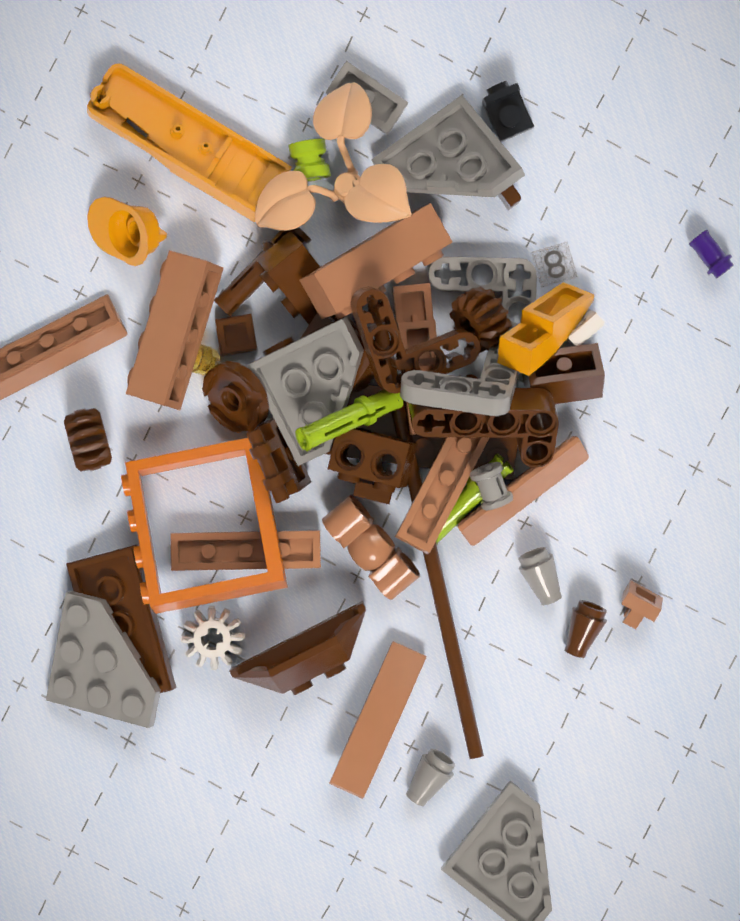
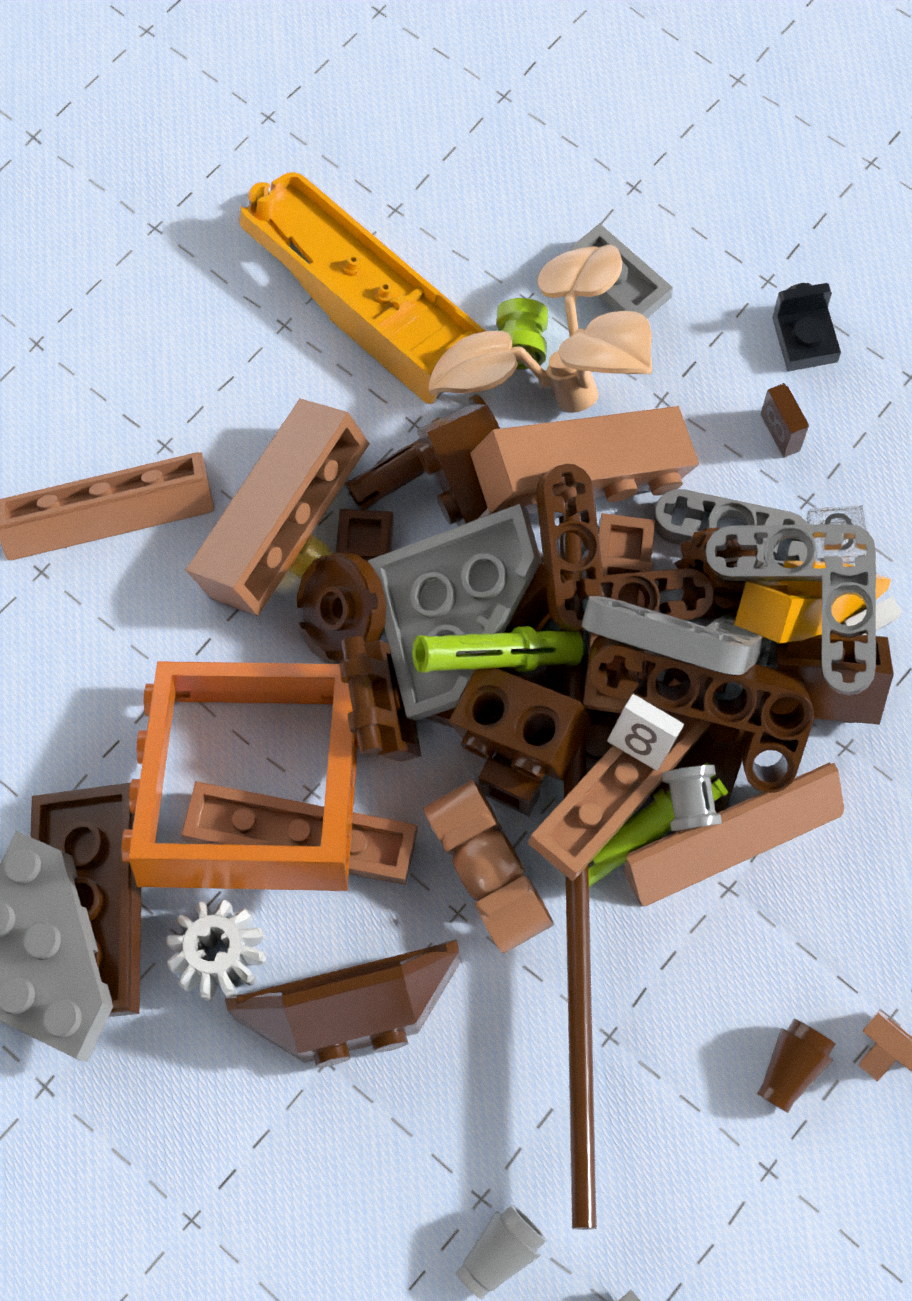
camera: 15 degrees right, 20 degrees down
(87, 439) = (113, 622): reddish brown gear -> none
(124, 230) = (247, 366): light orange piece -> none
(377, 720) = (435, 1138): nougat slope -> none
(453, 155) = (727, 356): light grey plate -> none
(454, 453) = (645, 732): none -> white tile
(541, 574) = (741, 967): light grey cone -> none
(557, 328) = (835, 579): none -> light grey beam

